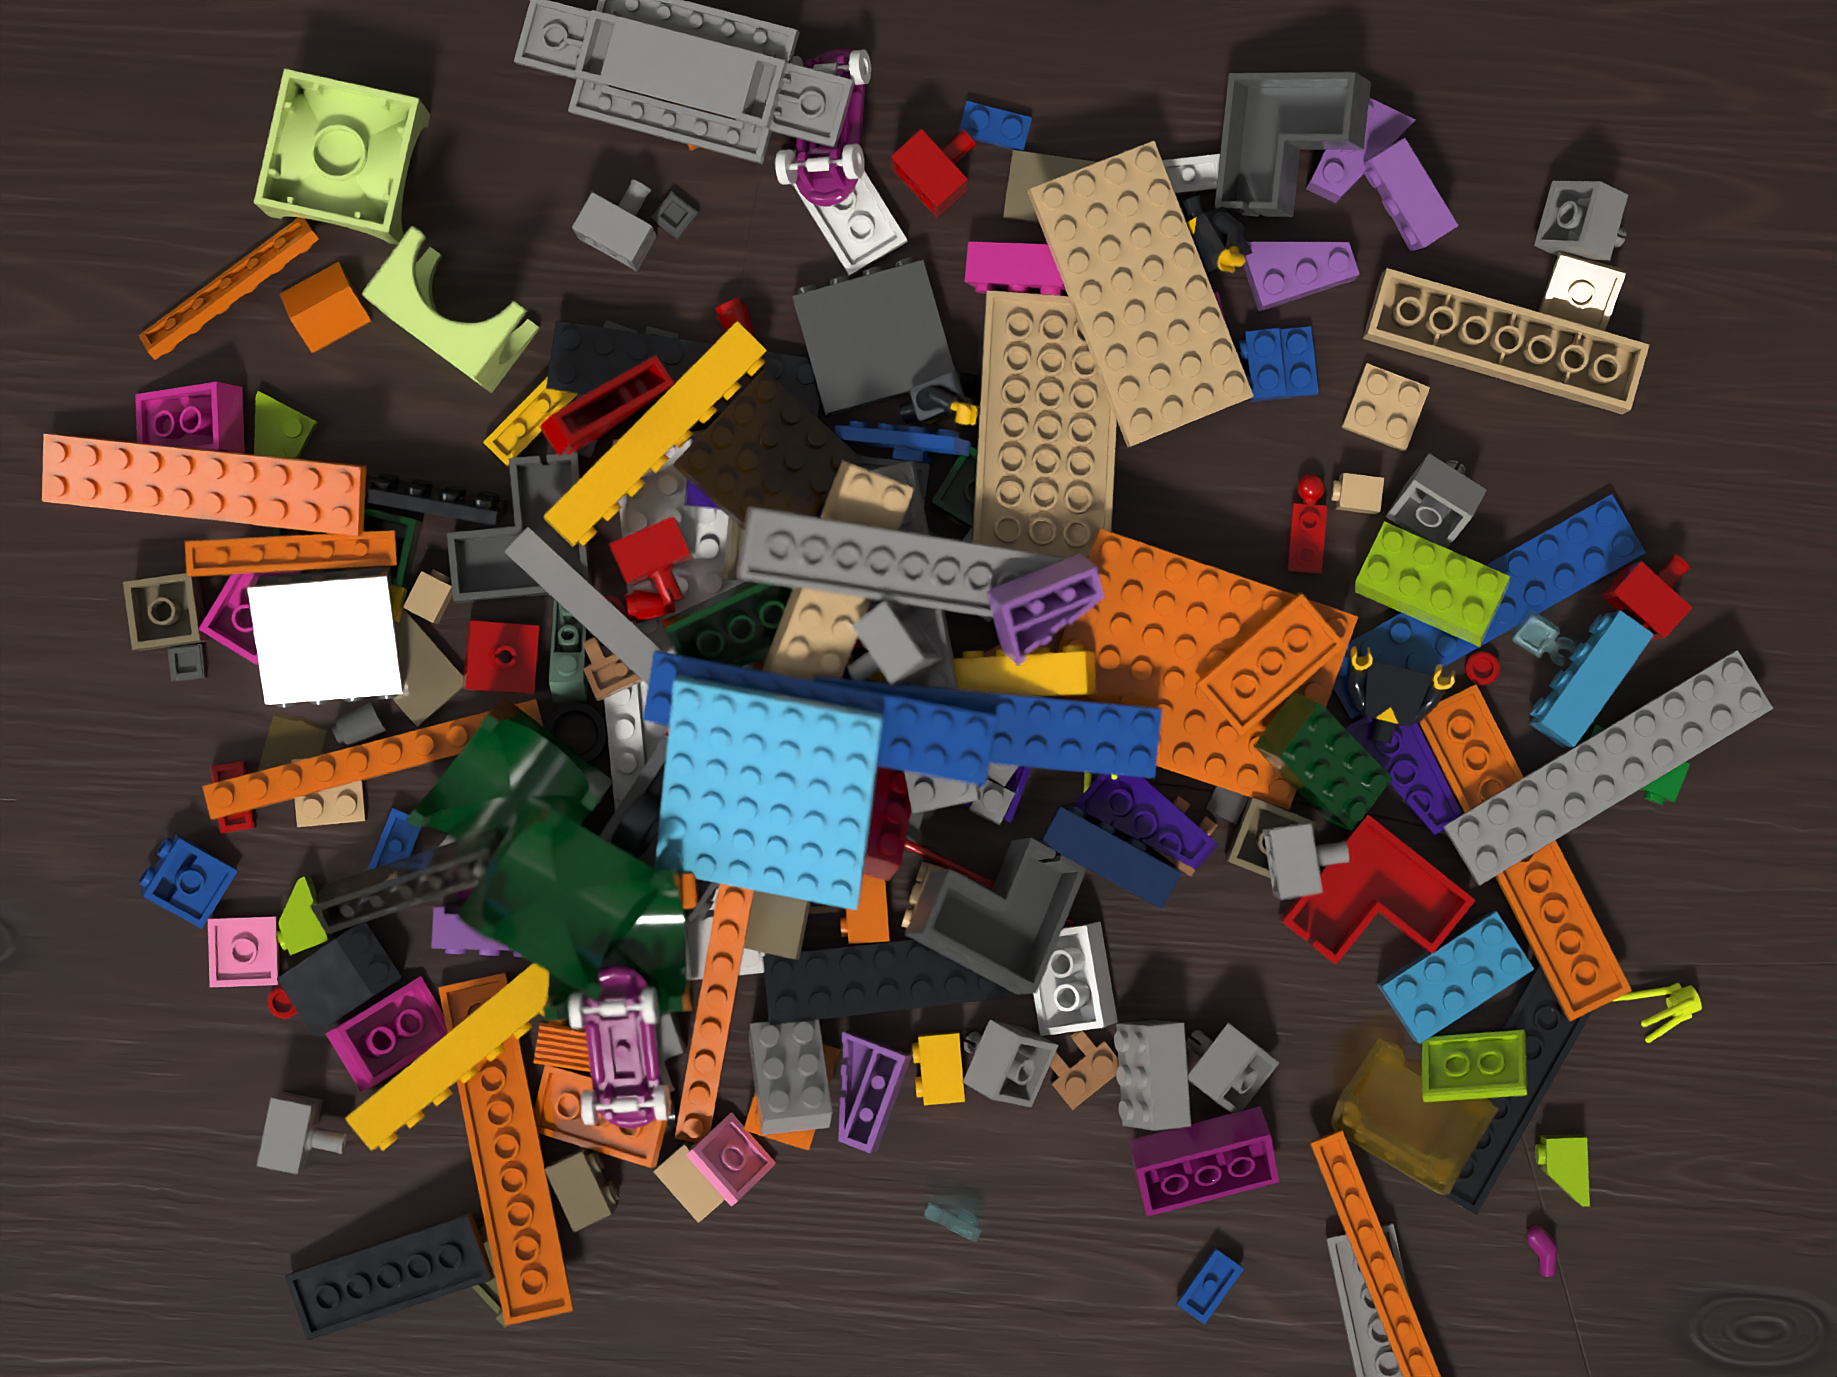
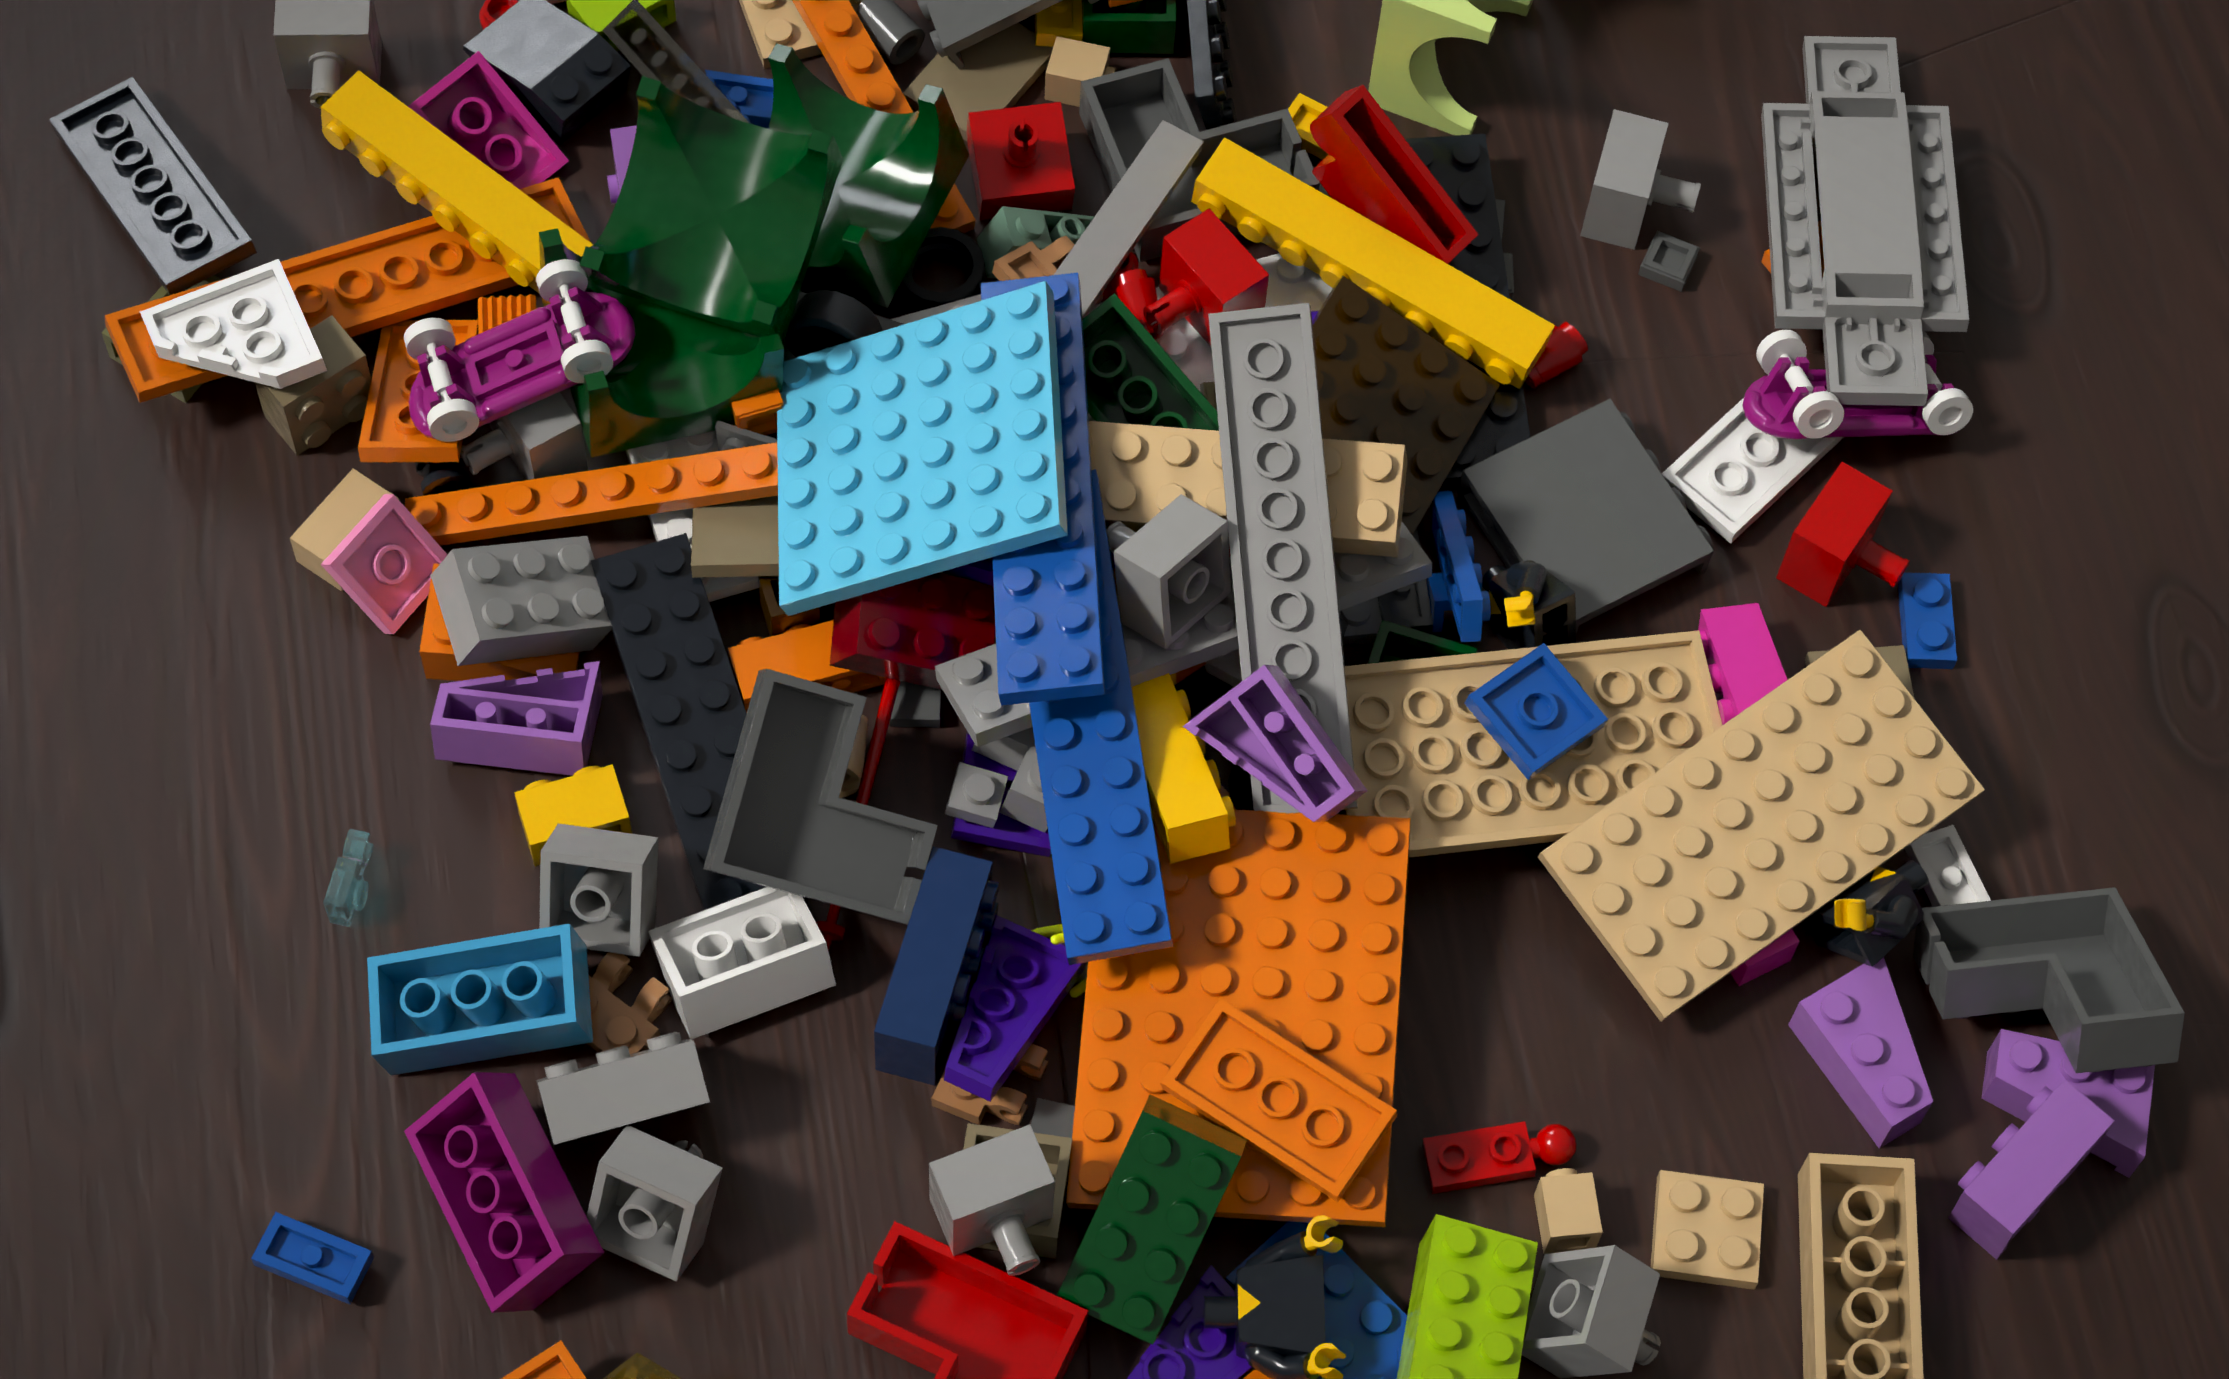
camera: 75 degrees right, 25 degrees down
(545, 1234) = (239, 329): none -> white plate
(1033, 421) = (1536, 711): none -> blue plate
(1069, 1153) = (479, 999): none -> dark azure brick
(1279, 363) = (1722, 1061): blue plate -> none

